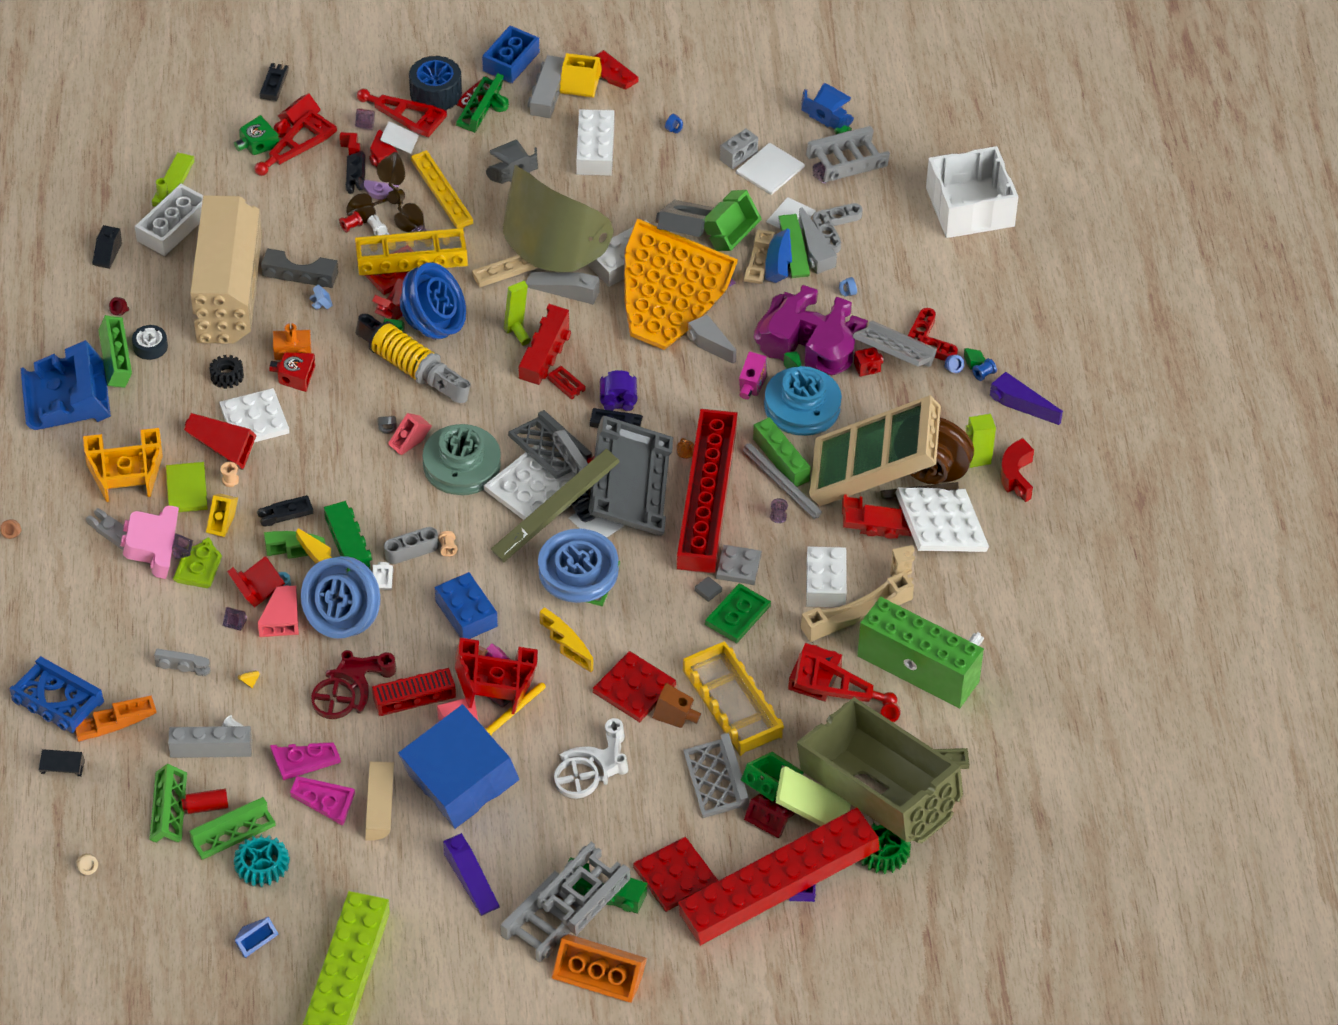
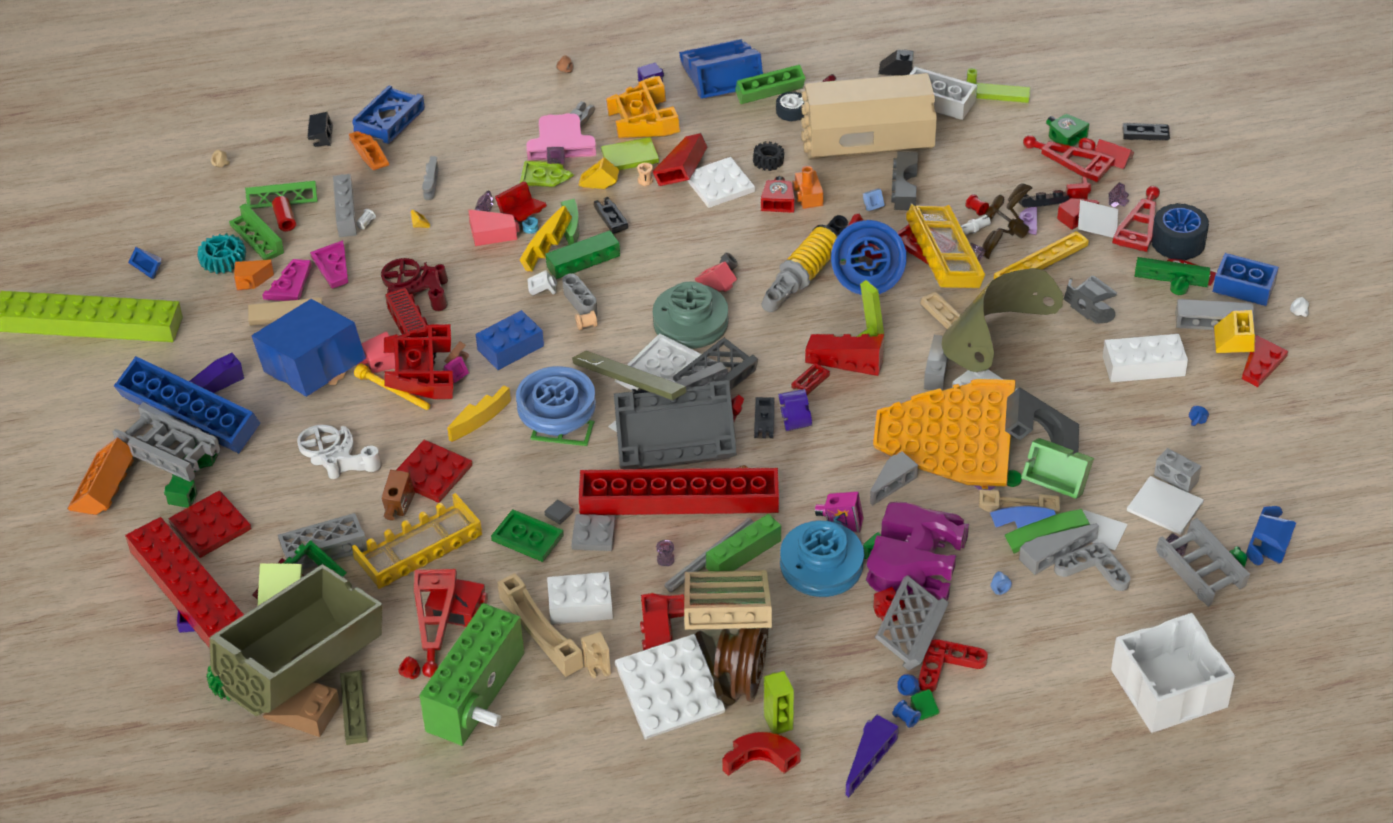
camera: 85 degrees right, 5 degrees down
(60, 454) = (649, 71): none -> brick
(304, 833) = (252, 273): none -> orange slope
(339, 600) = (497, 249): medium blue wheel -> none
(511, 884) = (188, 403): none -> blue brick
(549, 29) = (1300, 307): none -> white tile

